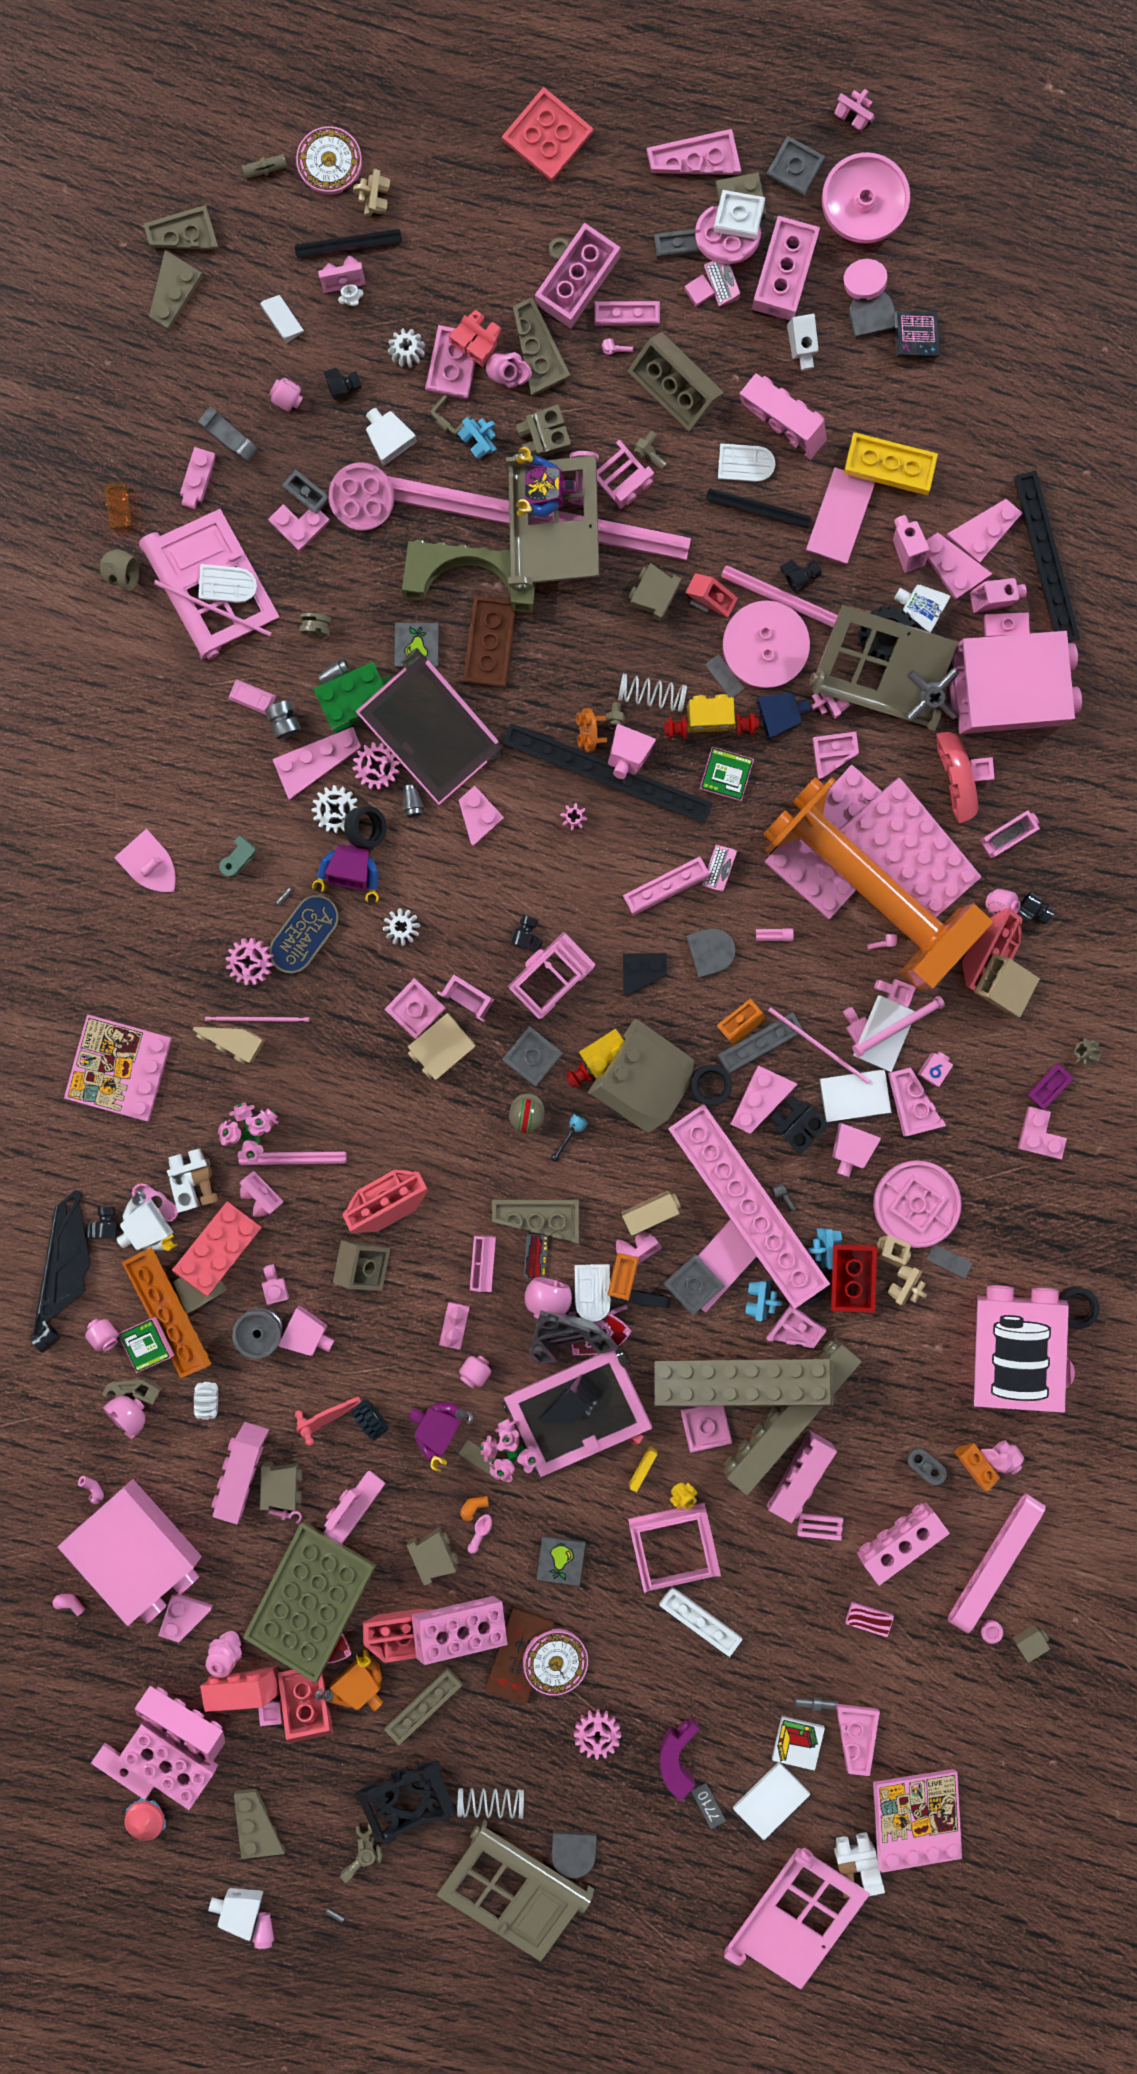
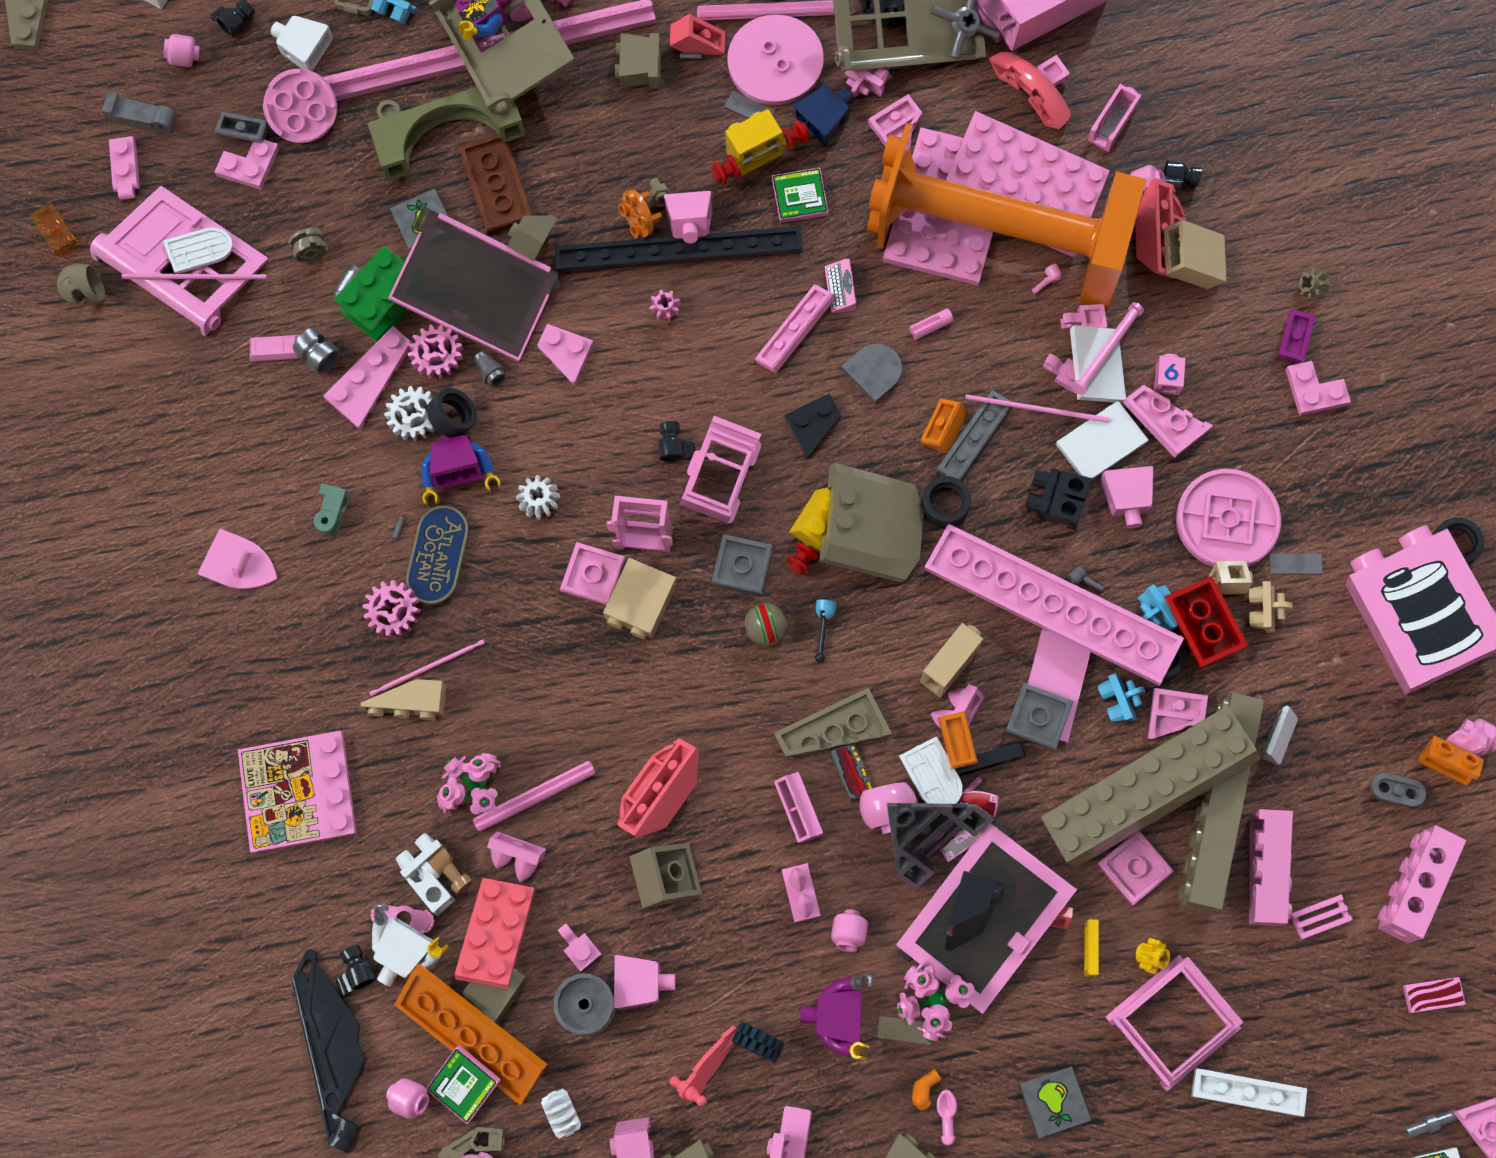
camera: 20 degrees left, 15 degrees down
(432, 534) = (387, 108): none -> dark tan tile
(495, 708) = (530, 234): none -> dark tan slope
(623, 690) = (714, 135): white piece -> none
(761, 1098) = (1005, 491): bright pink wing -> none
(863, 1384) = (1280, 736): none -> white slope

